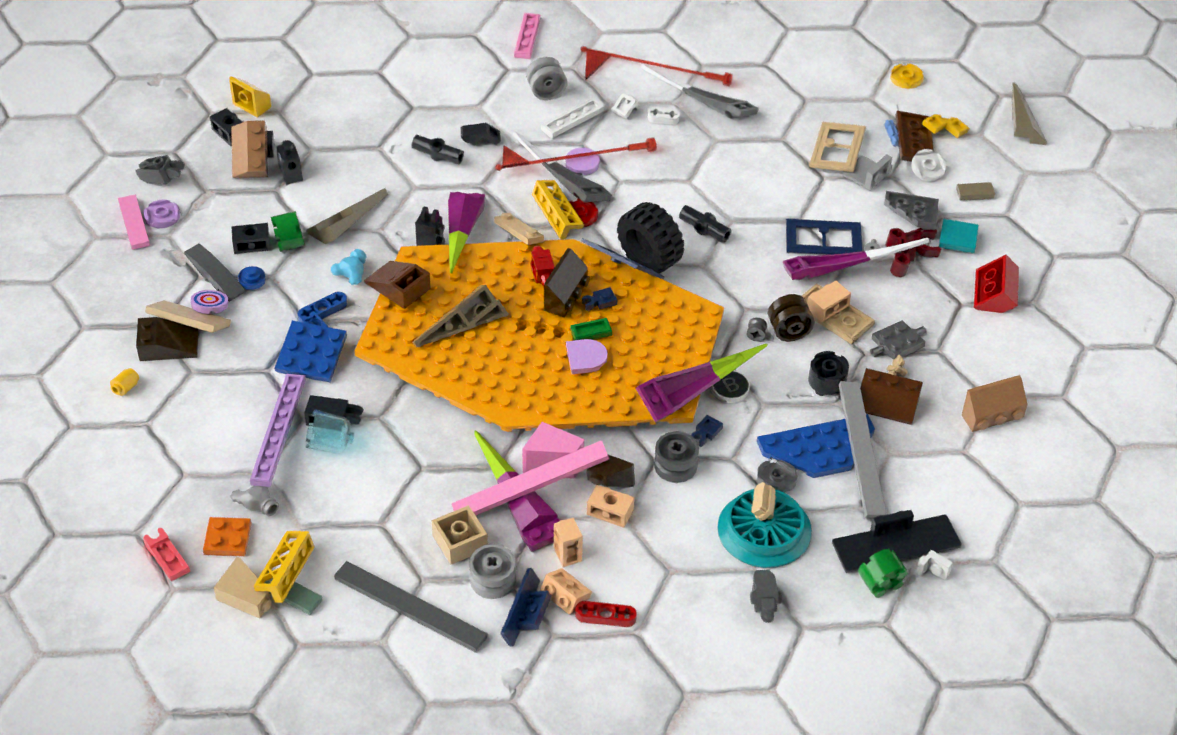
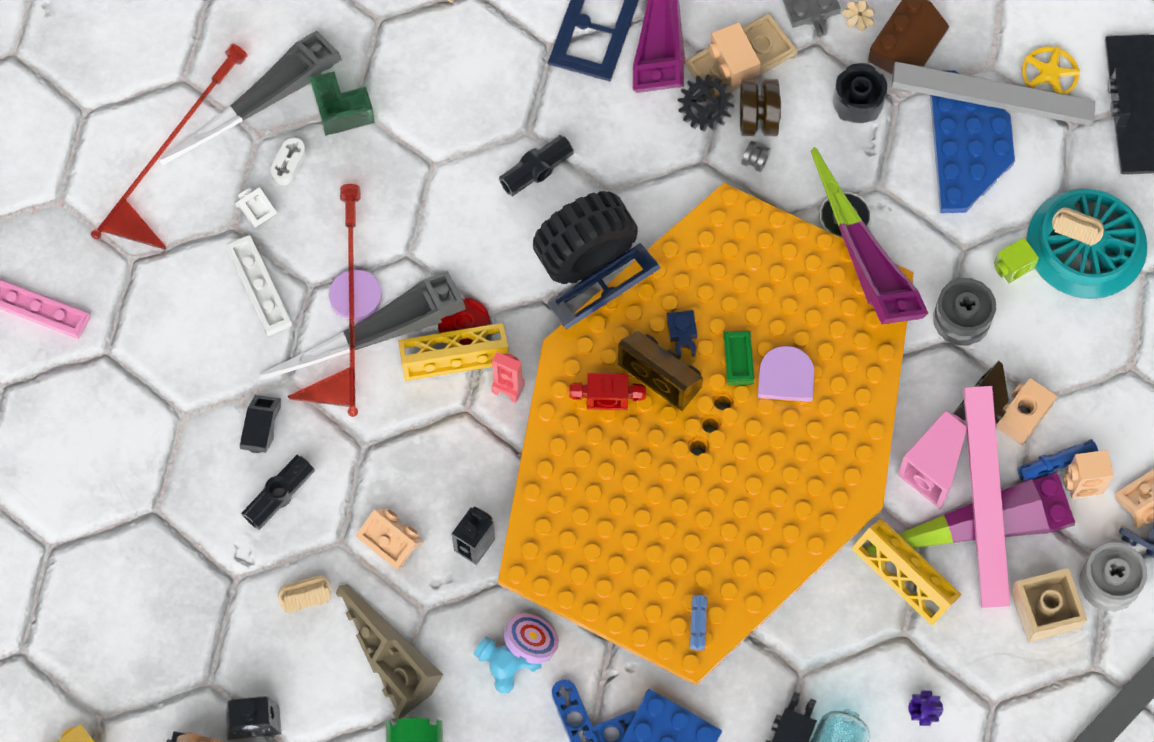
camera: 75 degrees left, 20 degrees up
(363, 269) = (531, 638): none -> lavender tile
(367, 479) = (925, 708): none -> dark purple gear
(374, 172) = (304, 593): none -> tan piece
(393, 338) = (698, 622): none -> medium blue axle
(400, 282) = (591, 594): reddish brown slope -> none
(422, 197) = (389, 537): none -> light nougat bracket
(462, 215) = (431, 480): magenta plate -> none
(467, 454) = (909, 566): none -> yellow fence
(472, 311) = (668, 502): dark tan wedge -> none
(519, 229) = (497, 411): tan plate -> none
(543, 216) = (507, 376): none -> coral plate
(546, 78) = (173, 299): light grey wheel -> none
(588, 542) = (1048, 464): none -> blue pin
(707, 428) = (919, 262): dark blue plate -> none
(708, 124) = (337, 109): none -> clear green brick
(730, 483) = (1015, 260): none -> lime brick
(768, 471) = (1012, 217): flat silver plate -> none
(785, 288) = (705, 113): none -> black gear
(900, 487) = (1050, 71): none -> yellow wheel

